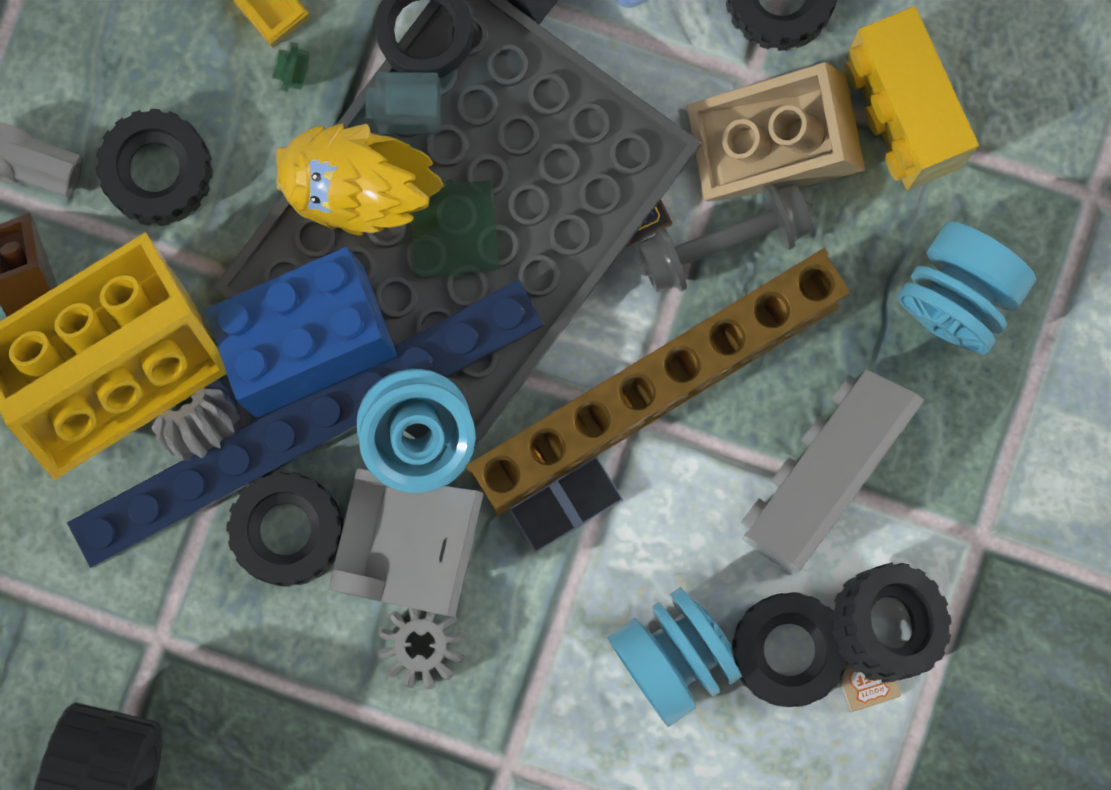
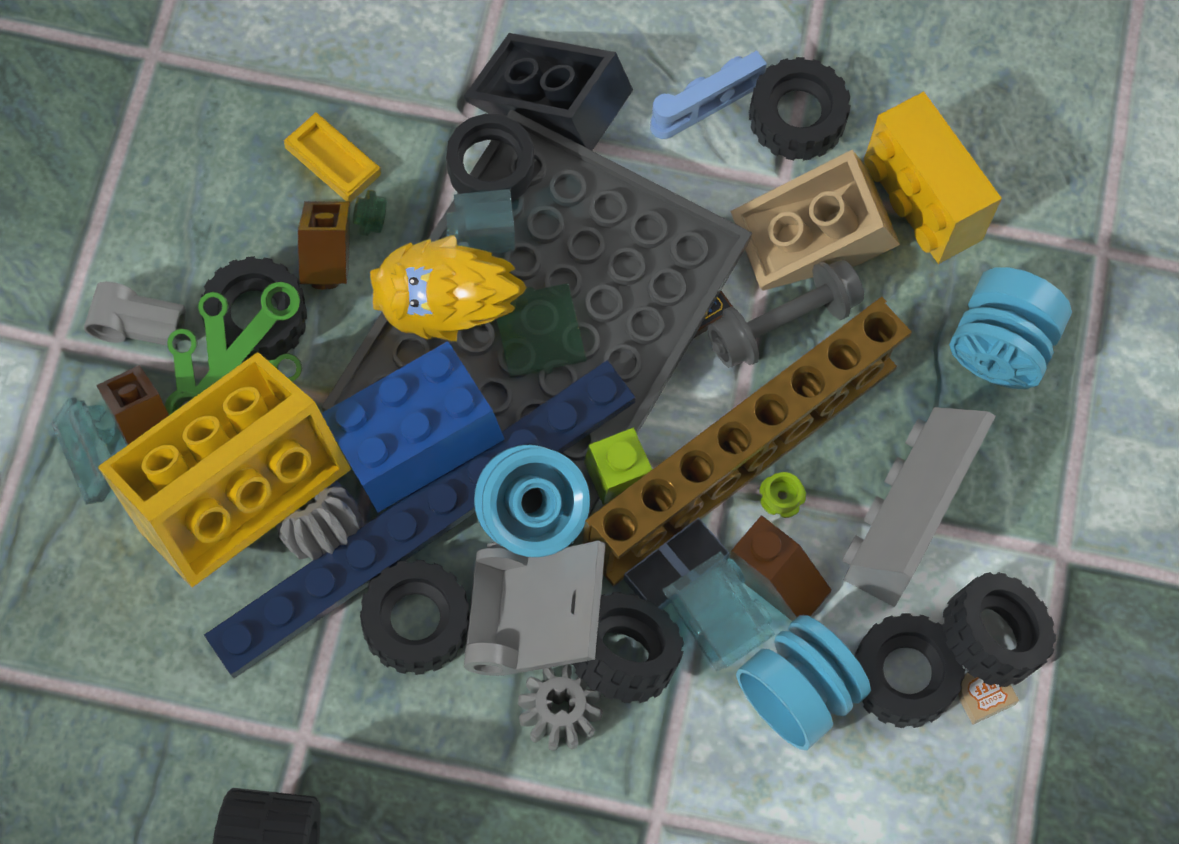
camera: 15 degrees left, 15 degrees down
(117, 228) = (220, 358): none -> bright green plant
(237, 97) = (324, 244): none -> reddish brown slope
(514, 399) = (616, 464): none -> lime brick
(535, 589) = (648, 626): none -> black tyre
(601, 565) = (720, 611): none -> clear light blue brick
(672, 528) = (779, 570): none -> reddish brown slope
(690, 454) = (785, 483): none -> lime plate

